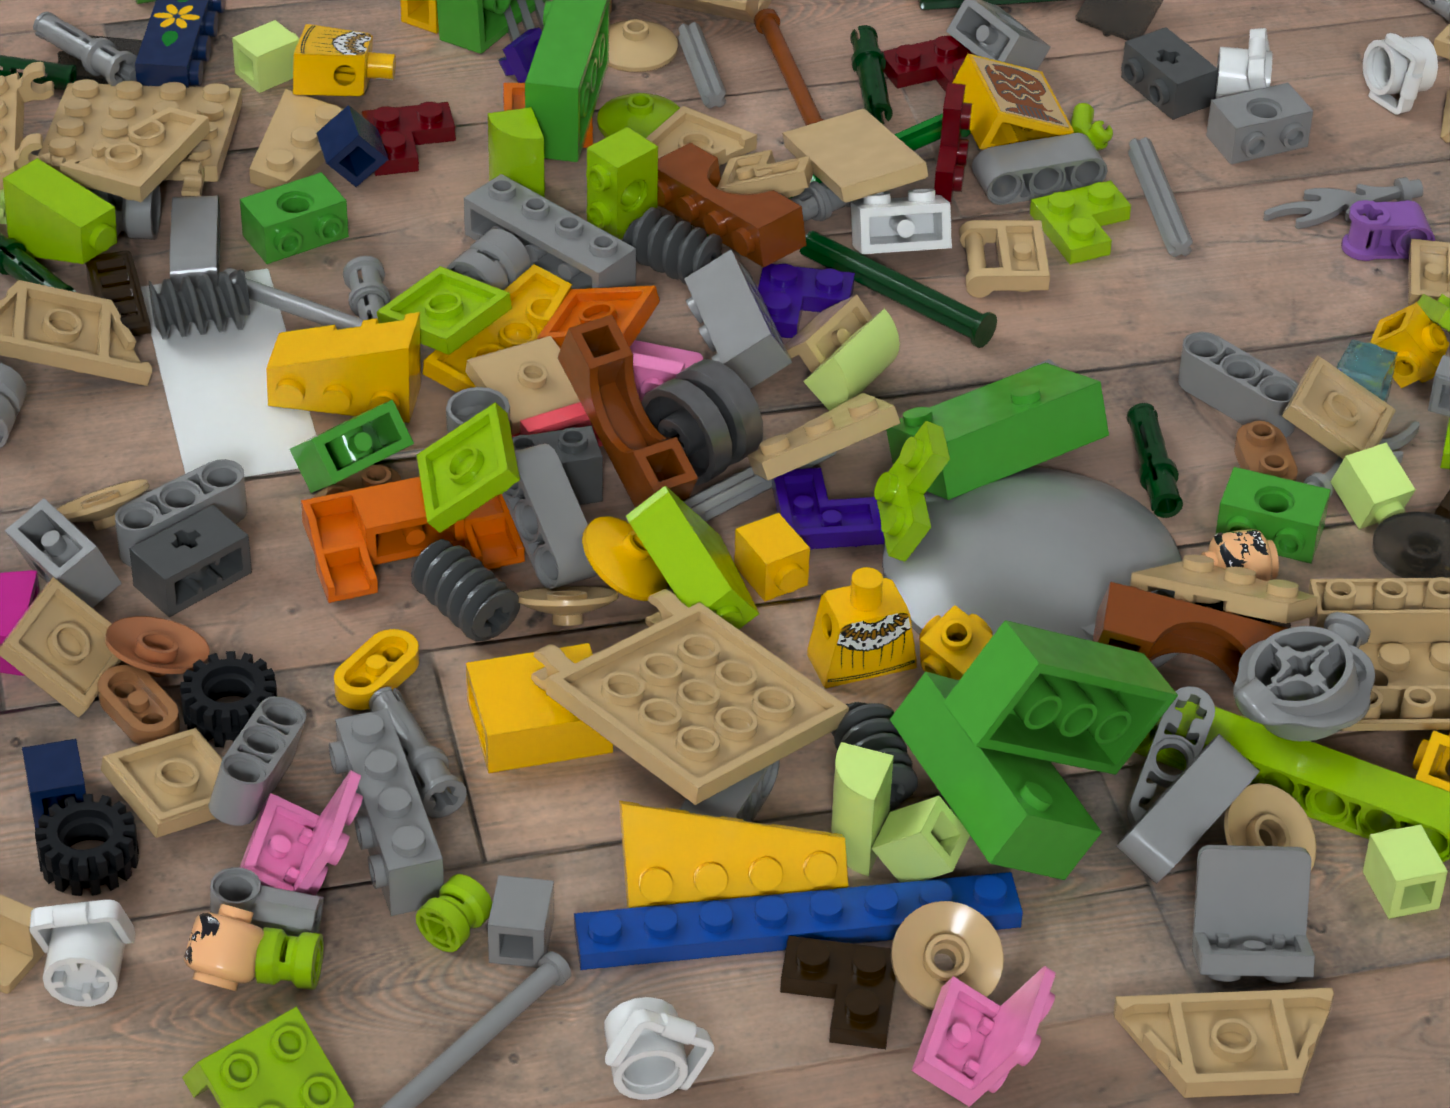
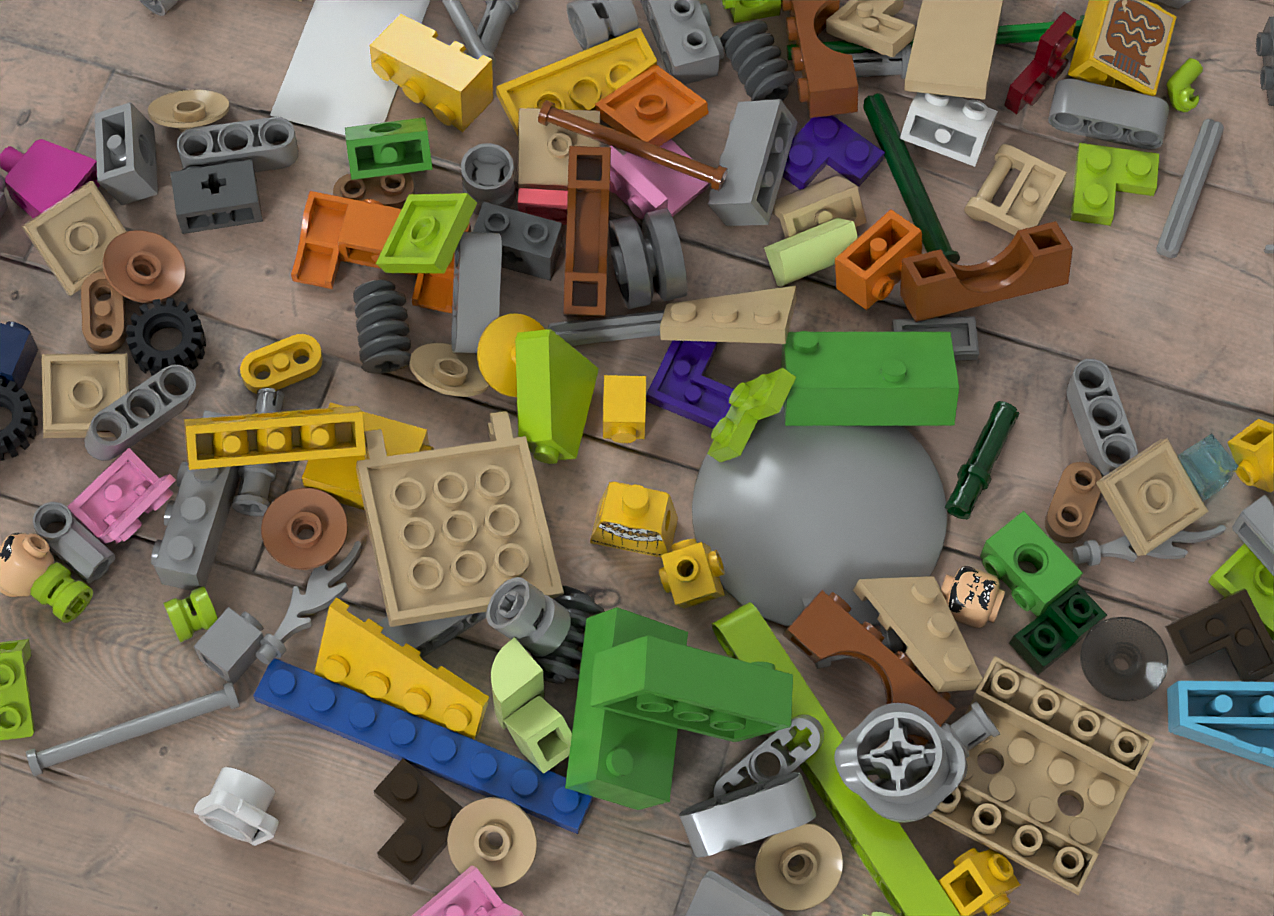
camera: 30 degrees right, 25 degrees up
(444, 687) = (274, 437): none -> yellow brick
(450, 308) = (535, 49): lime plate -> none
(519, 788) = (299, 511): none -> nougat dish
(574, 855) = (317, 598): none -> light grey piece
(634, 337) = (632, 145): none -> dark orange bar
(827, 716) = (529, 616): none -> light grey wheel
(926, 343) = (874, 260): none -> orange brick
(1003, 336) = (1031, 263): none -> dark orange arch
(1340, 548) = (1057, 629): none -> dark green slope
(1372, 485) = (1127, 582): yellowish green brick -> none

